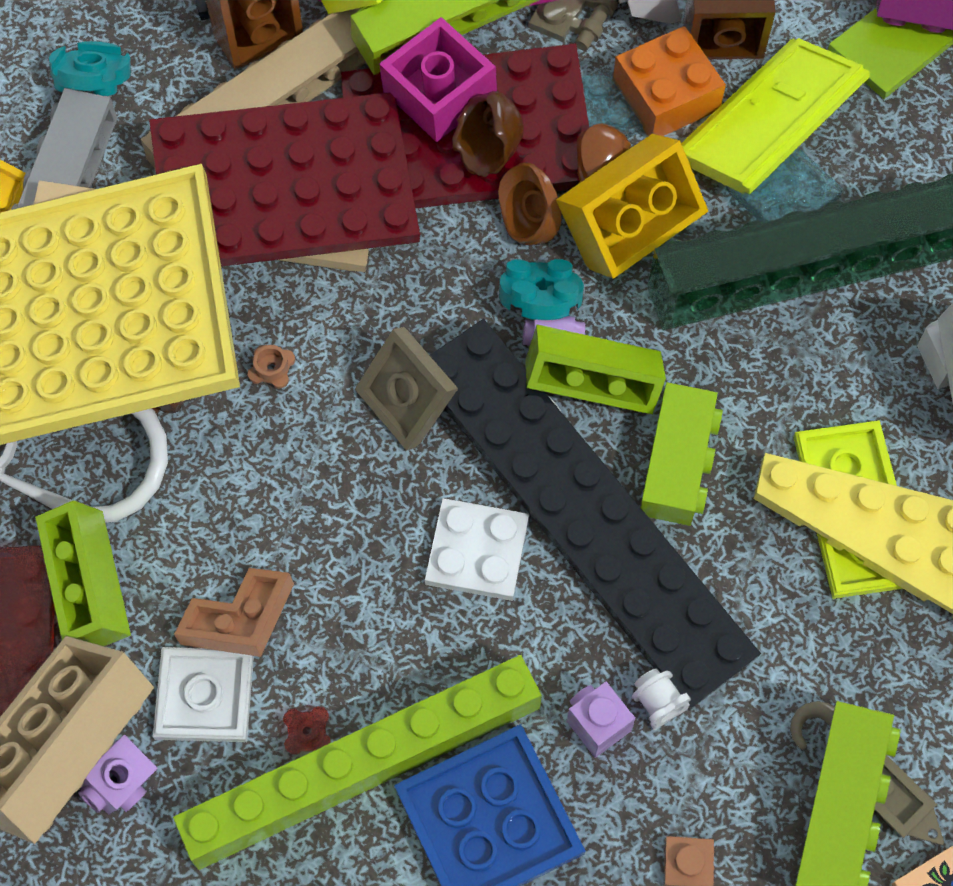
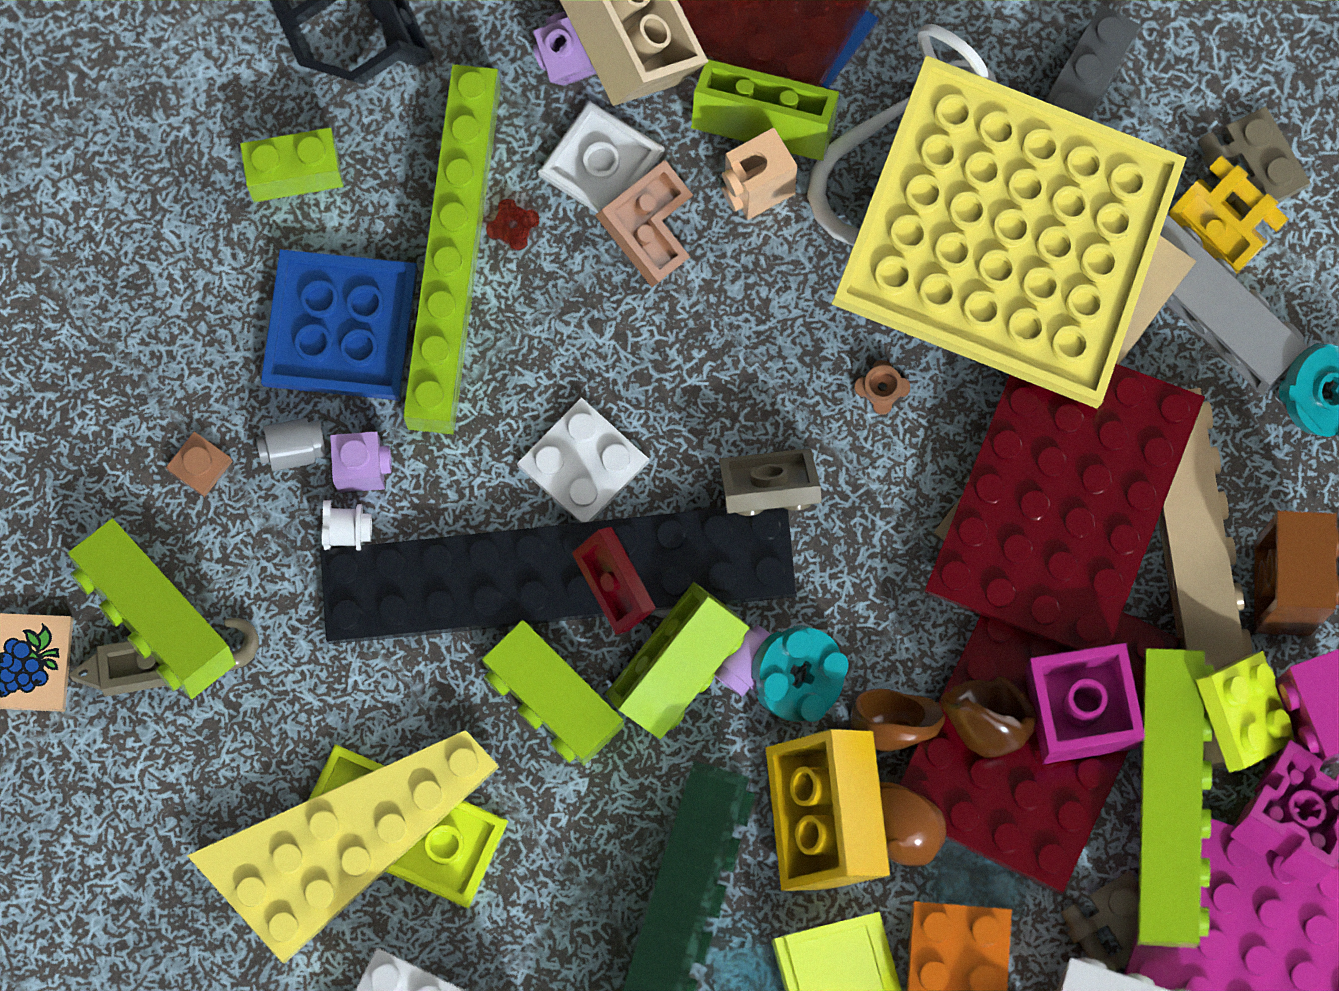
camera: 125 degrees right, 10 degrees up
(146, 540) = (759, 174): none -> light nougat brick
(568, 441) = (613, 580): none -> dark red plate
(620, 790) = (291, 444): none -> light grey brick

